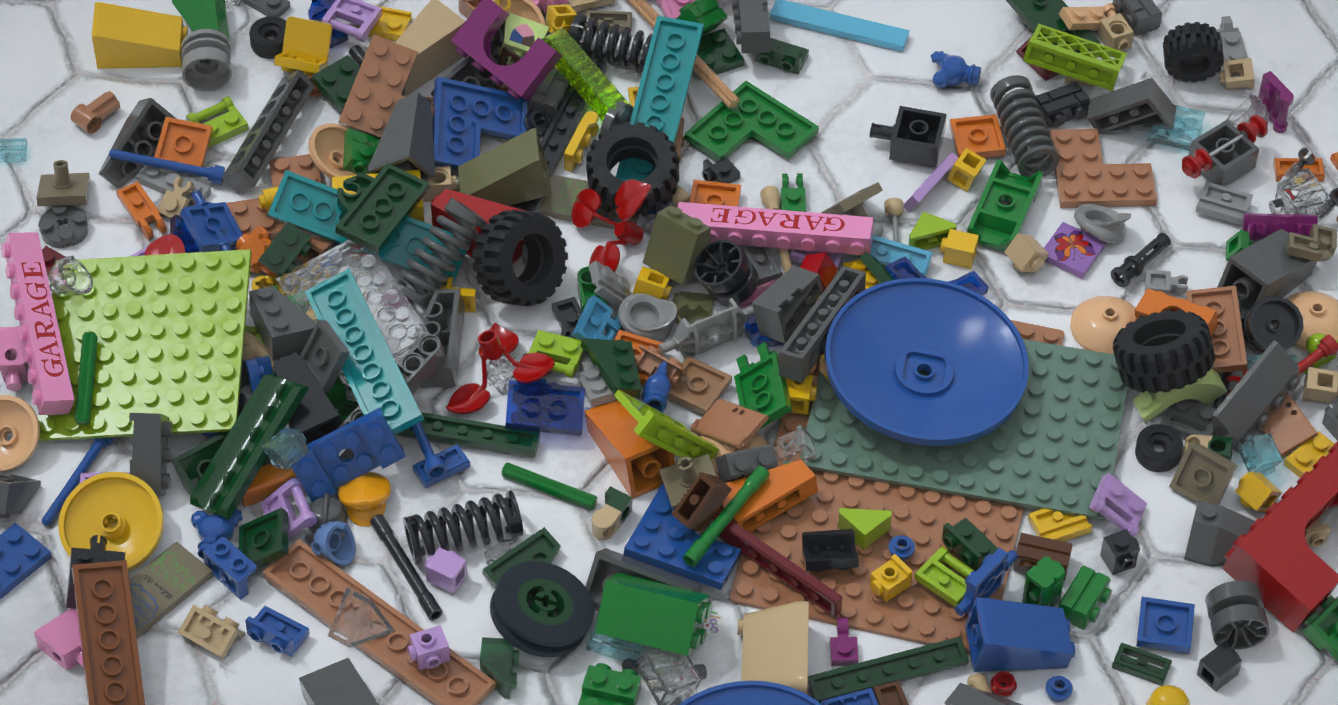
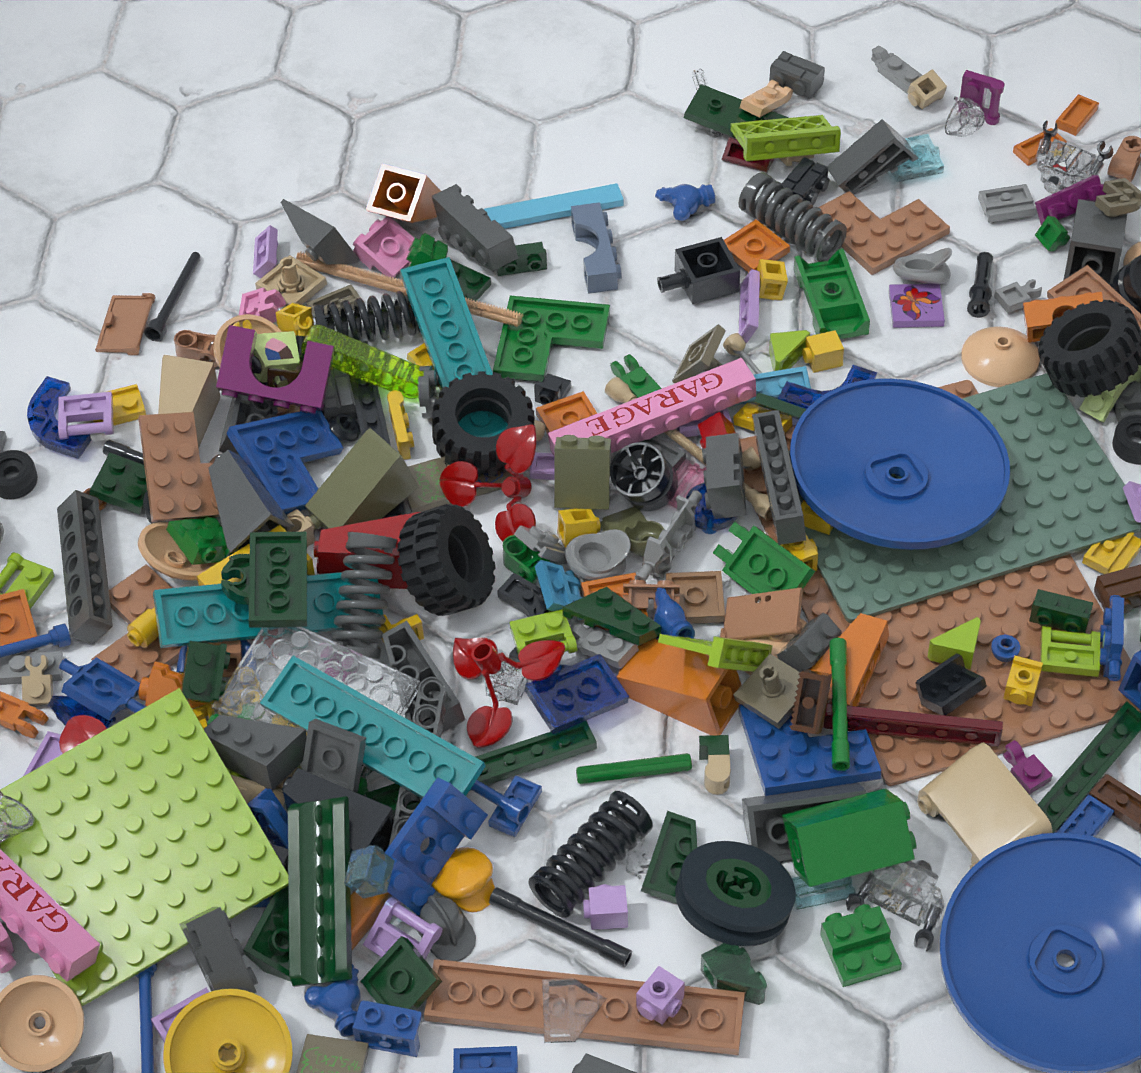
camera: 30 degrees left, 0 degrees up
(86, 378) = (91, 914): green axle -> none
(305, 46) = (58, 464): yellow bracket -> none
(332, 545) = (473, 946): medium blue helmet -> none
(795, 446) = (846, 604): clear brick -> none
(837, 93) = (599, 268): none -> sand blue arch
(1026, 253) = (887, 327): tan brick -> none
(1115, 32) = (796, 102): tan brick -> none
(1193, 52) = (881, 86): black tyre -> none
(1225, 151) = (976, 156): dark grey brick -> none

